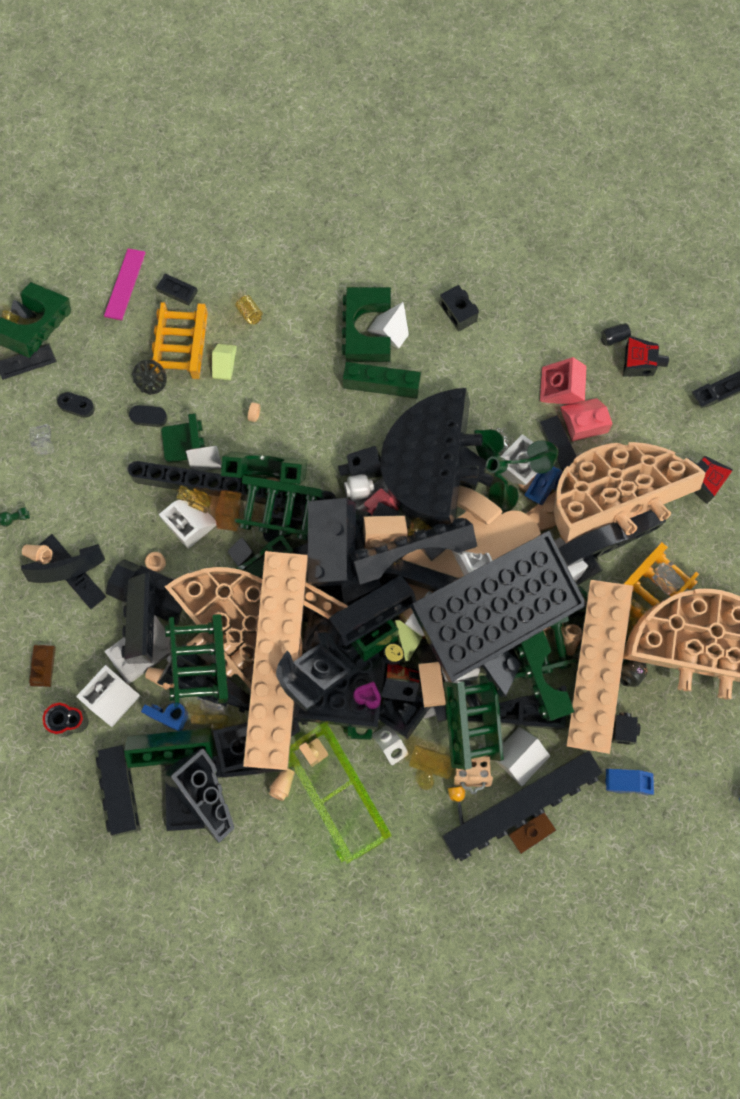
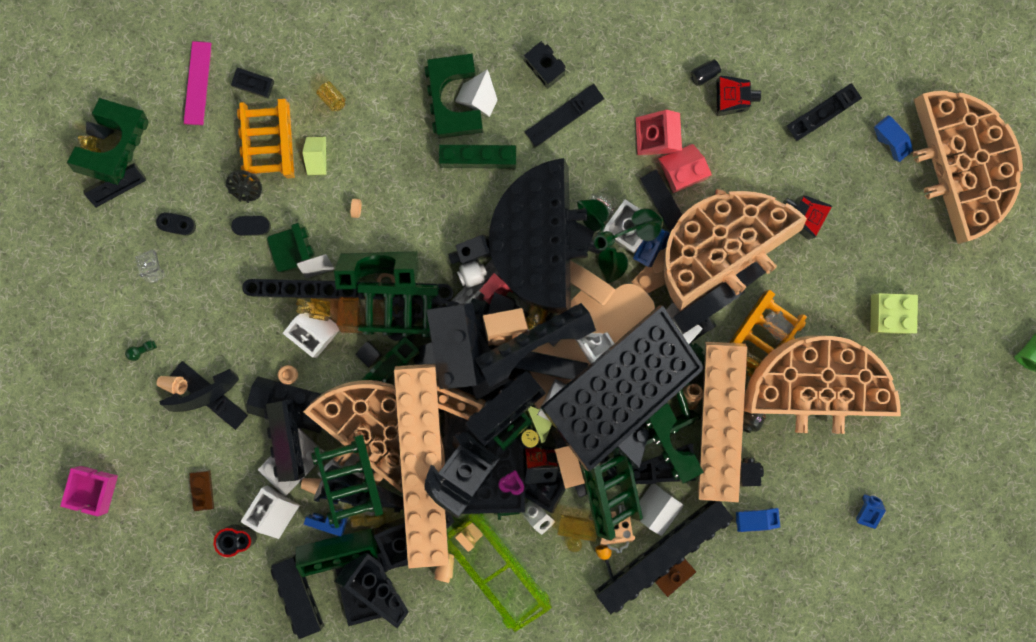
camera: 15 degrees left, 15 degrees up
(472, 356) = (564, 115): none -> black piece

